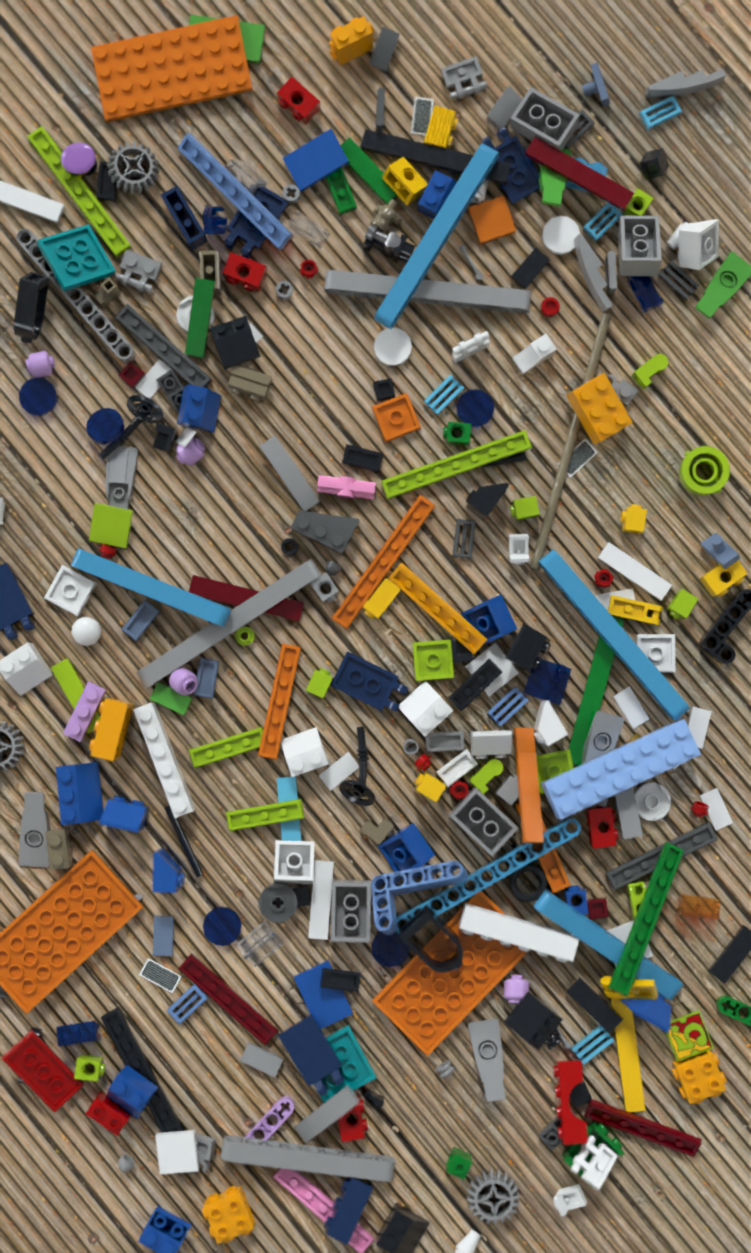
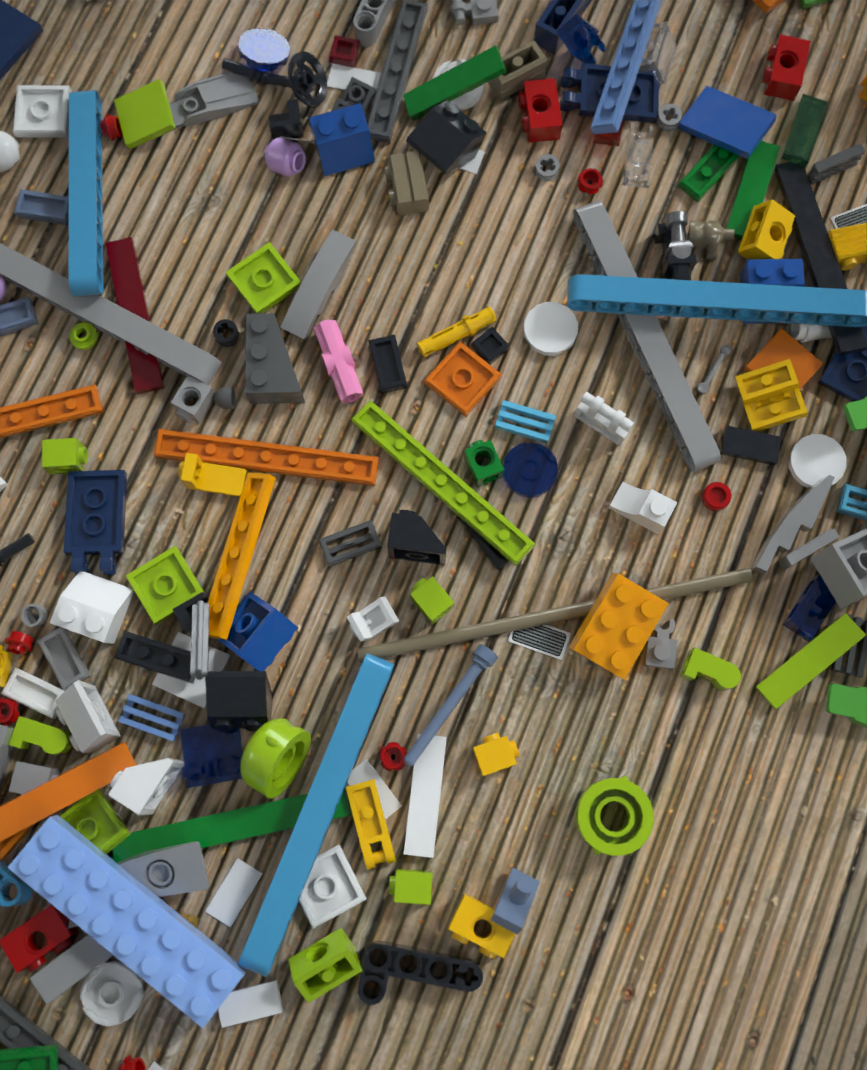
camera: 60 degrees right, 10 degrees down
(266, 505) = (263, 279): none -> lime plate
(346, 115) = (804, 130): none -> clear green tile
(365, 405) = (466, 327): none -> yellow pin
(482, 653) = (200, 640): none -> axle
(507, 239) = (771, 395): none -> yellow slope
(571, 644) = (274, 757): none -> lime piece
(575, 498) = (481, 661): none -> sand blue piece
(675, 310) = (810, 661): none -> lime tile
(699, 674) = (324, 965): none -> lime brick

